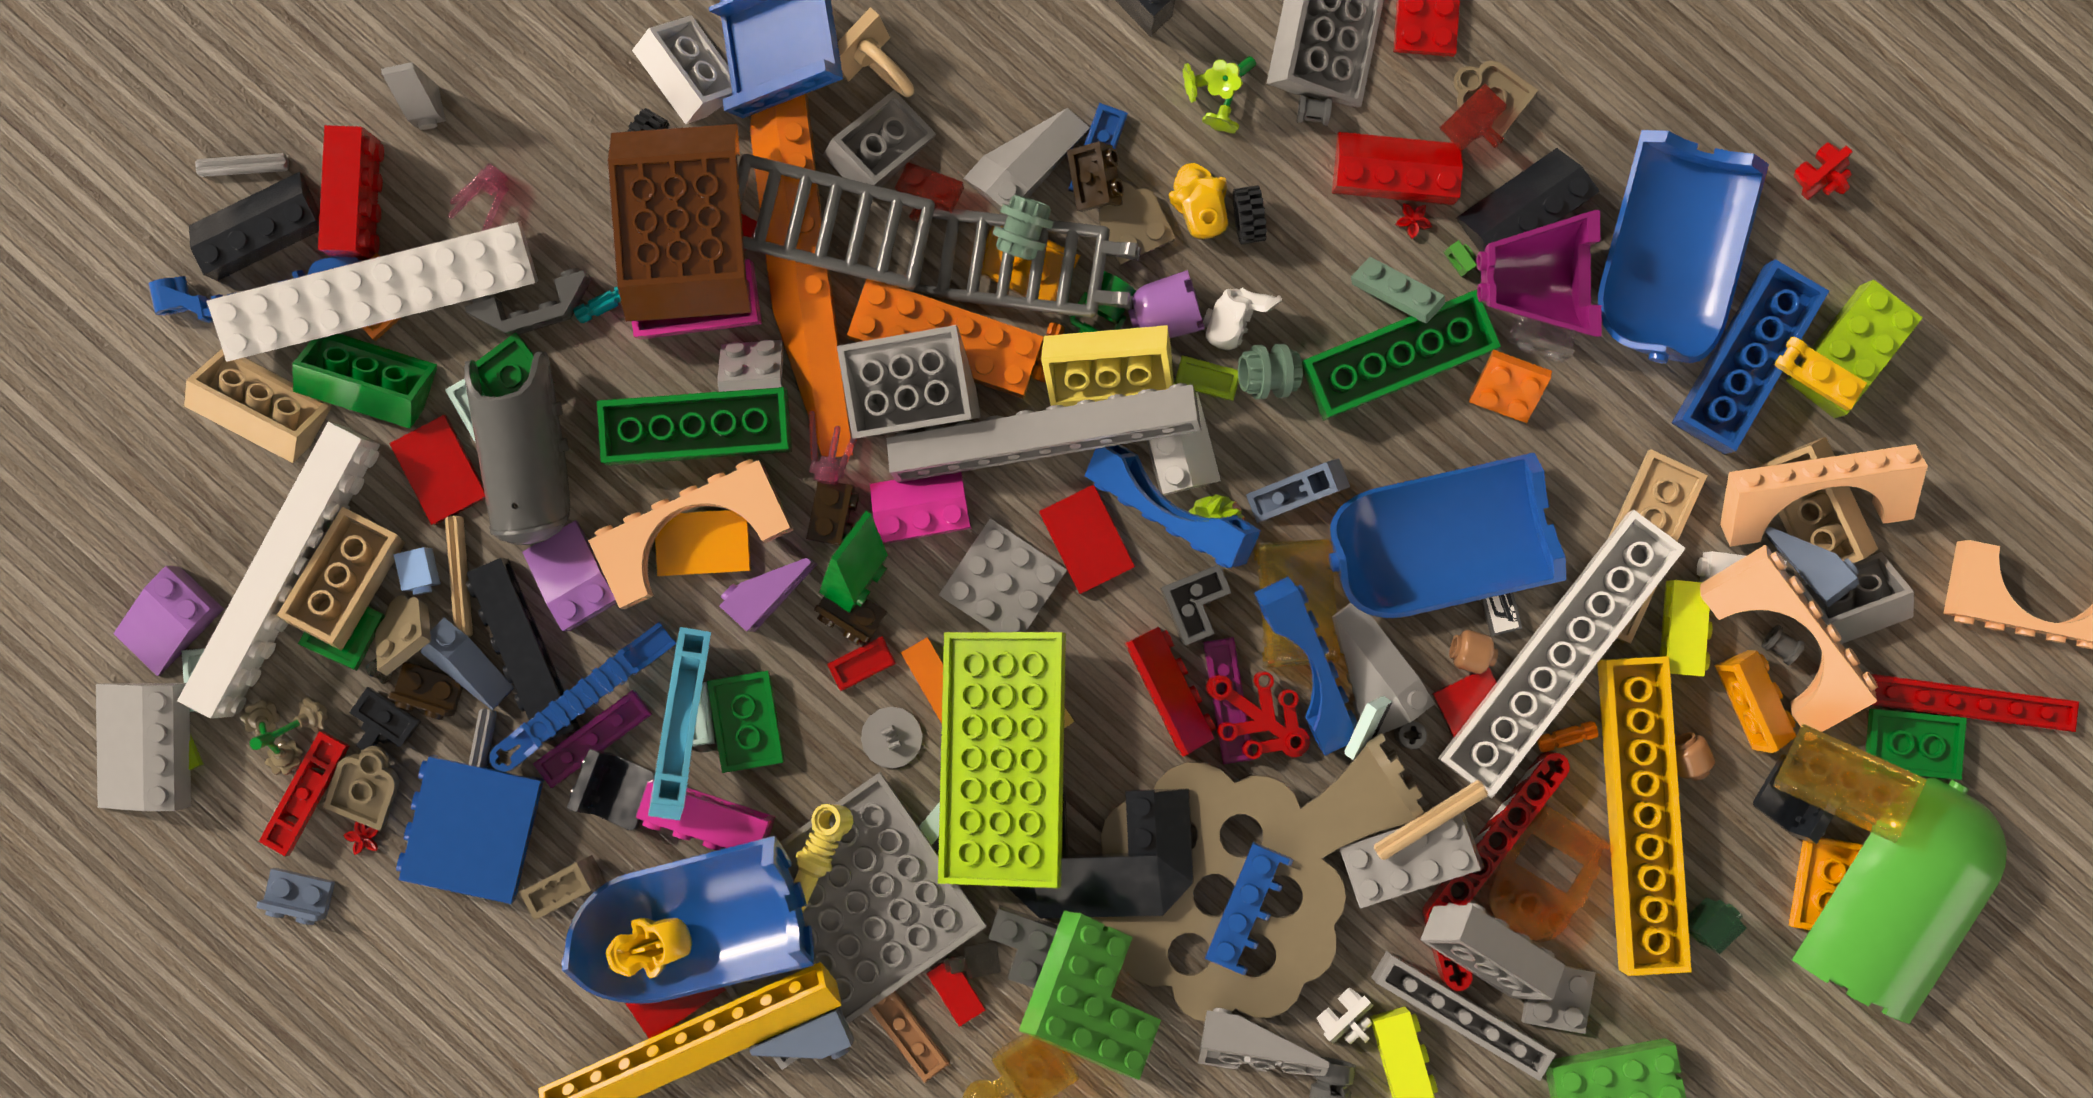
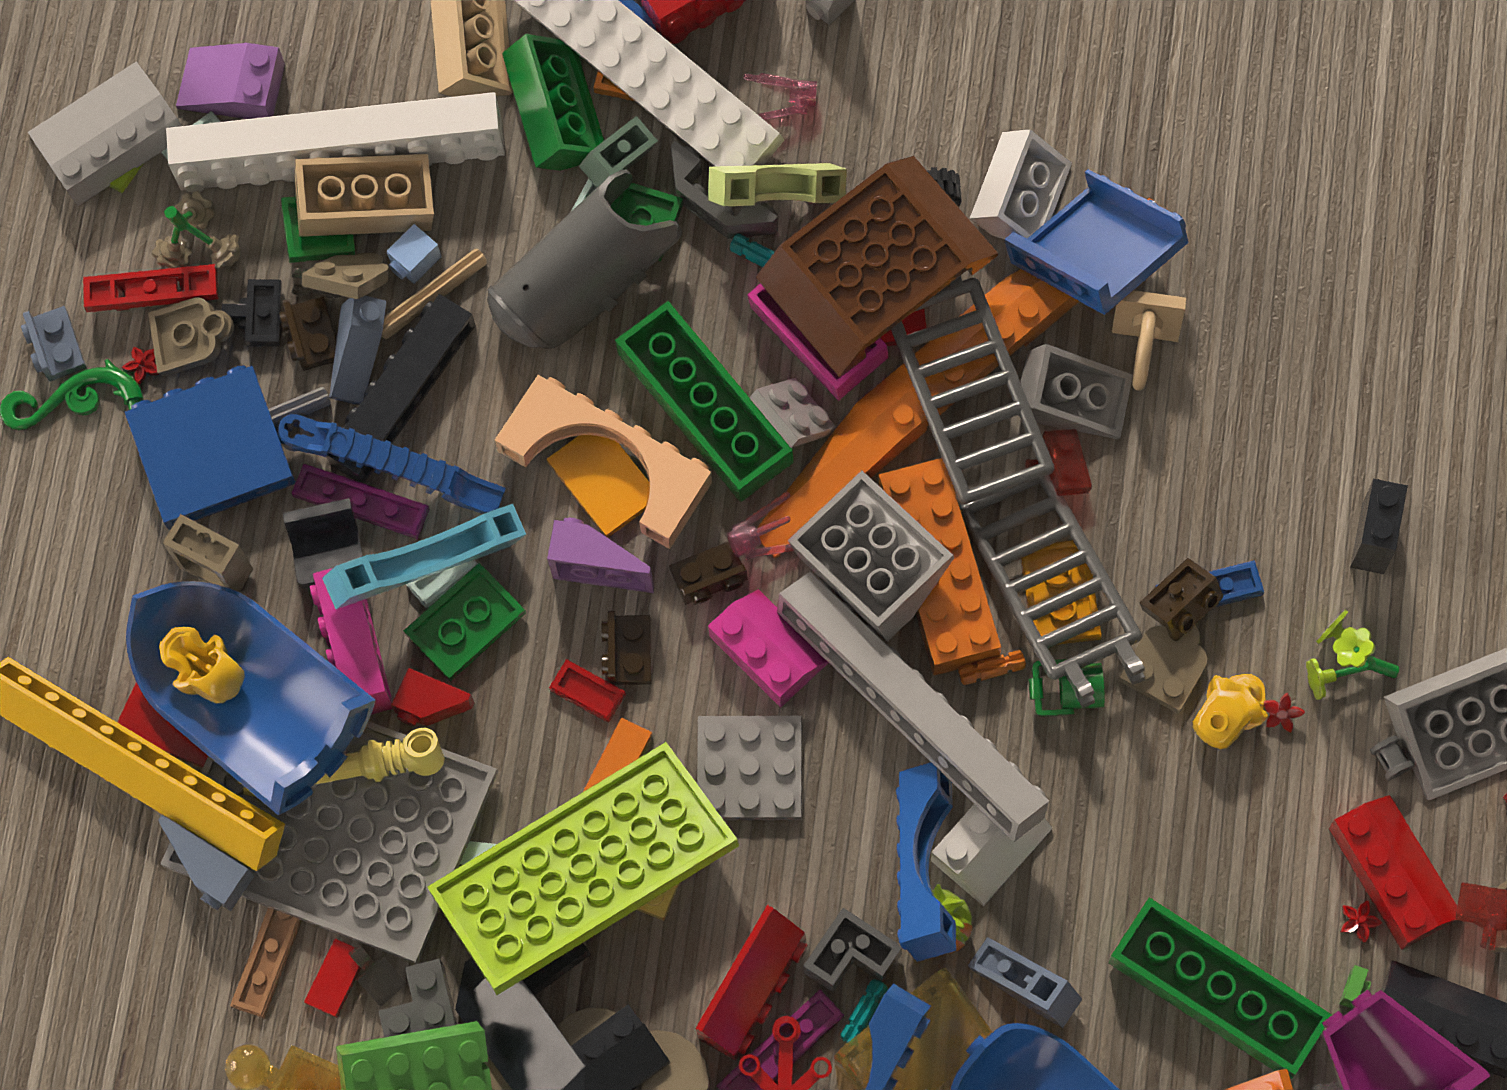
camera: 60 degrees right, 15 degrees down
(346, 907) = (69, 391): none -> green plant
(438, 469) = (515, 215): red tile -> none
(444, 357) = (618, 151): none -> sand green brick
(543, 276) = (776, 182): none -> yellowish green arch
(570, 577) = (492, 385): medium lavender slope -> none
(788, 789) = (428, 700): none -> red slope
(855, 565) = (674, 615): green slope -> none
(891, 737) = (537, 763): light grey piece -> none
(1023, 227) = (1086, 559): sand green piece -> none
(1026, 160) = (1143, 530): light grey wedge -> none
(1086, 539) = (842, 817): red tile -> none
(1106, 364) = (1016, 718): light yellow slope -> none
(1169, 303) = (1109, 743): medium lavender cylinder -> none
(1208, 378) = (1071, 829): lime tile -> none
(1227, 165) = (1282, 712): none -> red plant
(1231, 311) = (1144, 806): white head -> none
(1241, 621) = (864, 1010): none -> teal axle
(1249, 214) = (1249, 760): black tyre -> none
(1274, 371) = (1117, 877): sand green piece -> none
(1398, 290) = (1279, 944): sand green plate -> none

